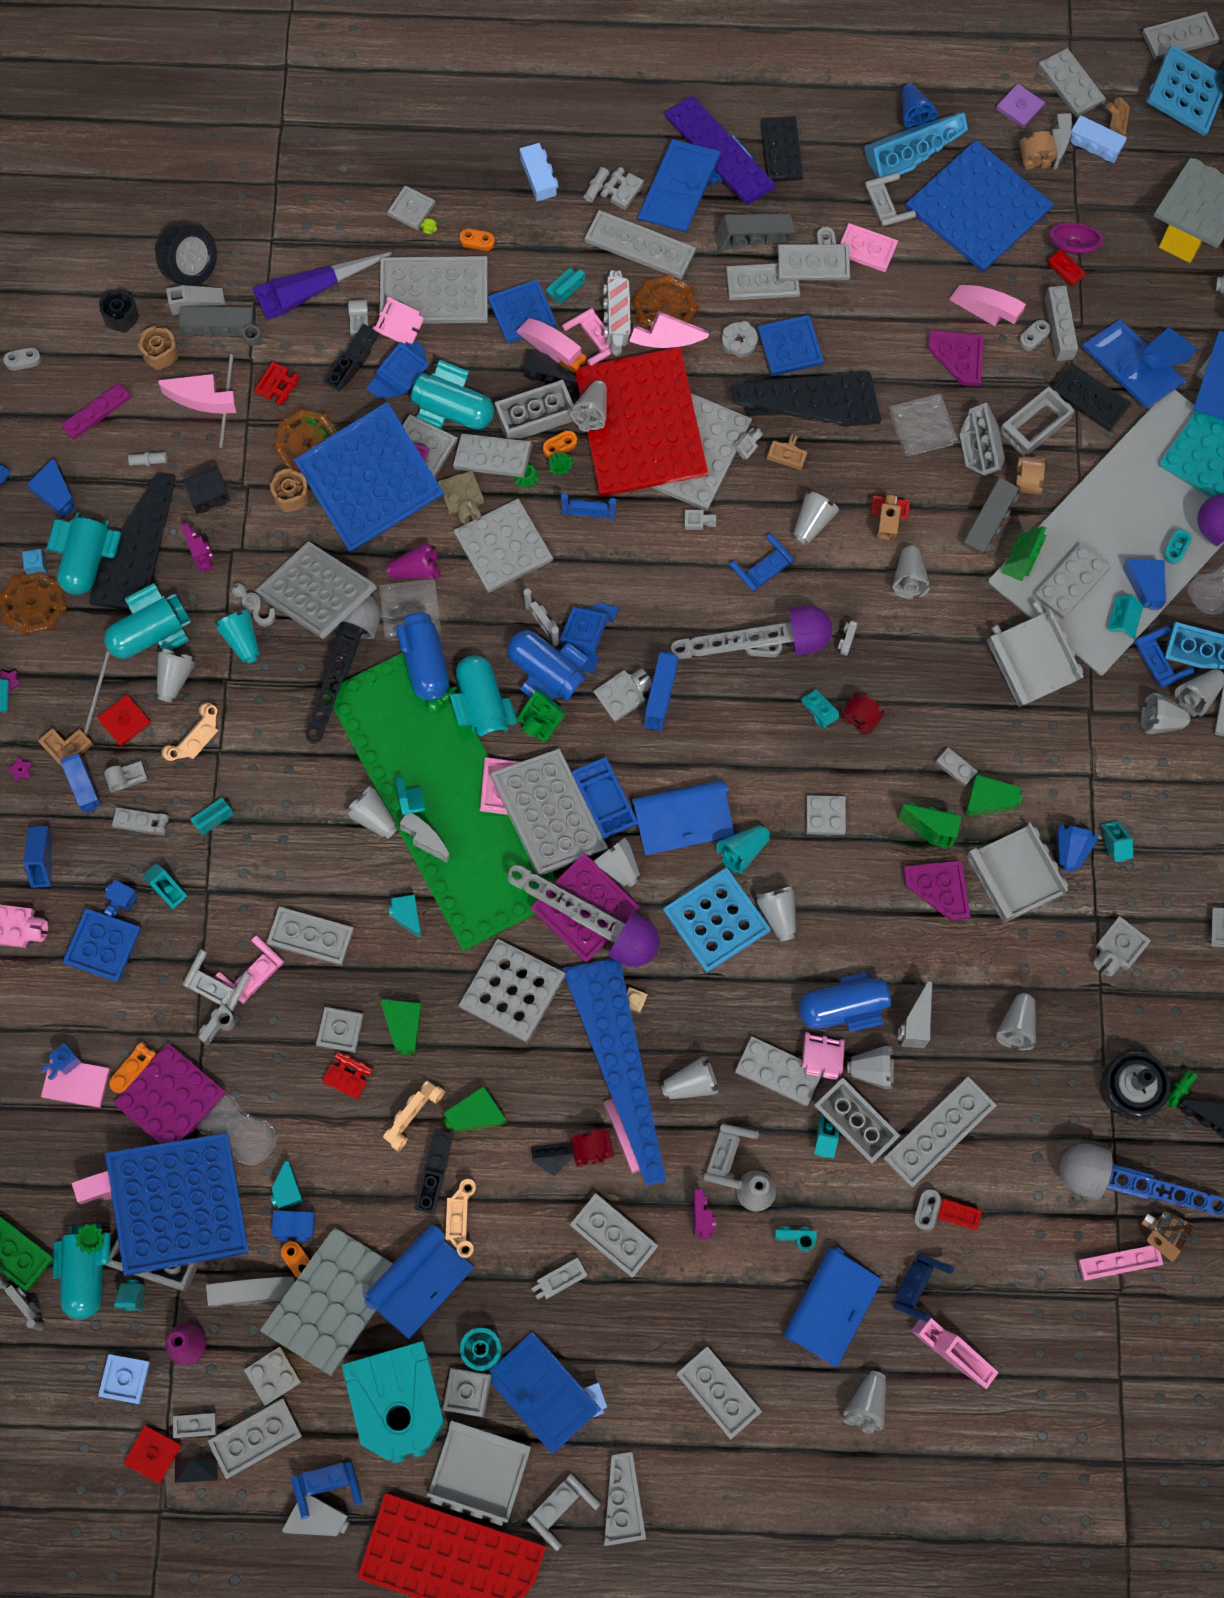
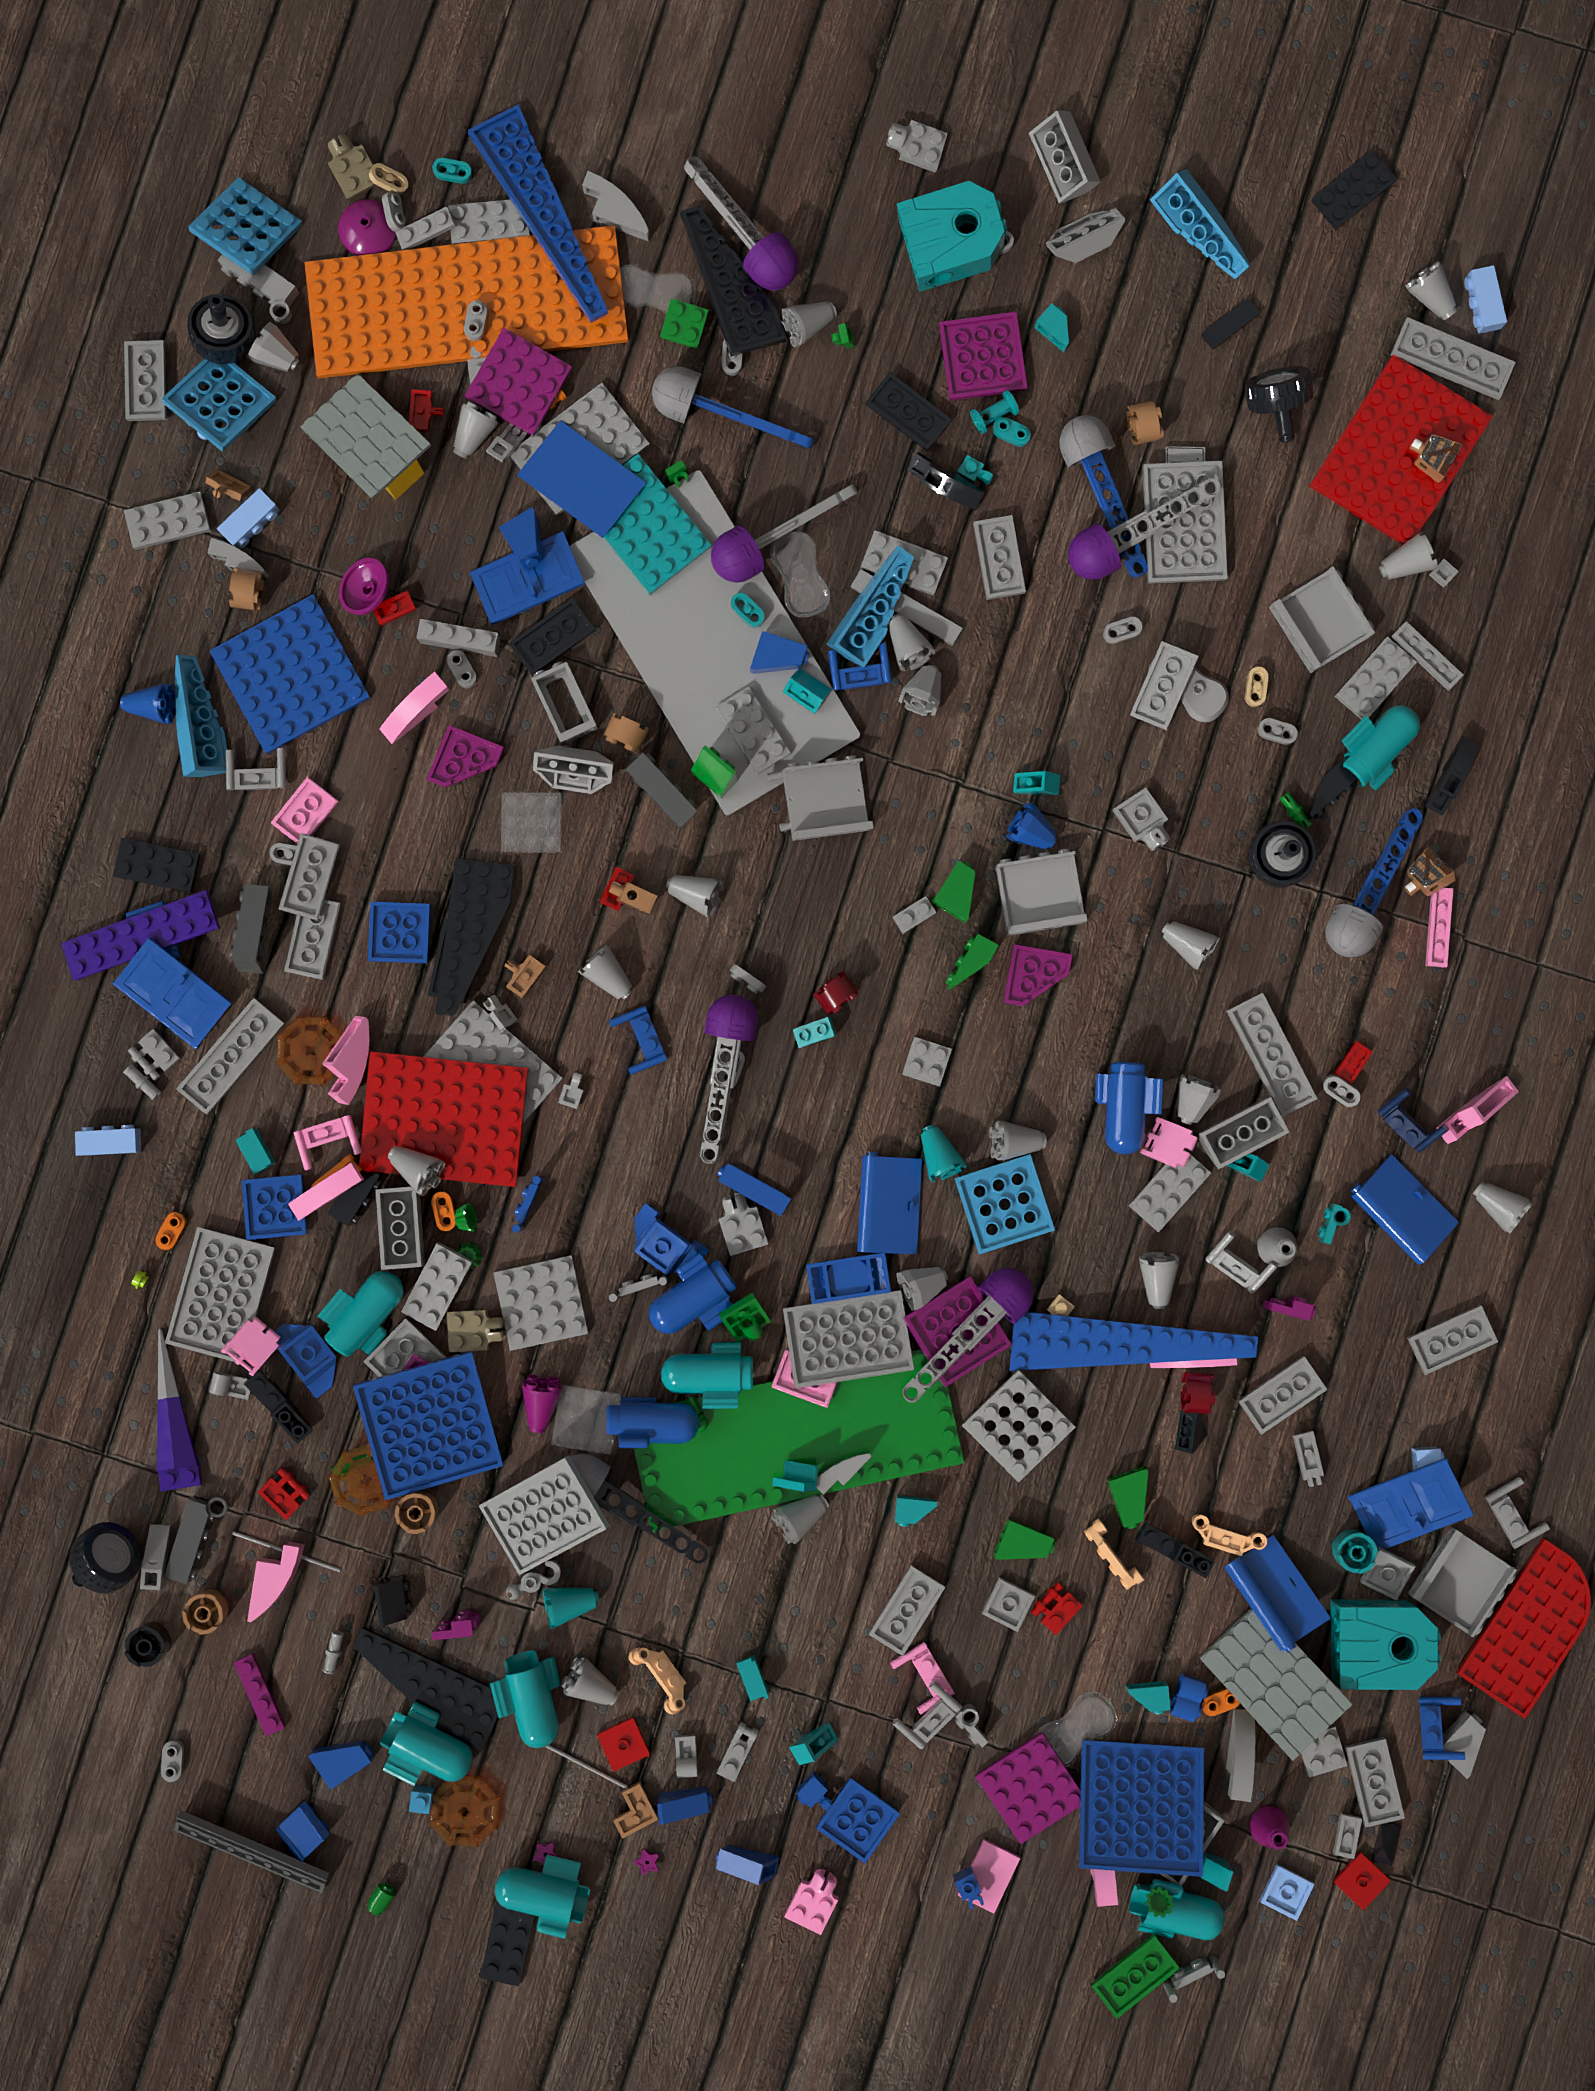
camera: 75 degrees left, 15 degrees up
(131, 1068) = (990, 1817): orange plate -> none
(411, 207) = (111, 1292): light grey plate -> none
(617, 311) = (307, 1105): light grey hinge -> none
(624, 1510) = (1531, 1457): light grey wing -> none
(743, 330) = (383, 991): light grey plate -> none
(916, 1027) = (1163, 1043): light grey slope -> none
(1020, 106) = (180, 587): medium lavender plate -> none

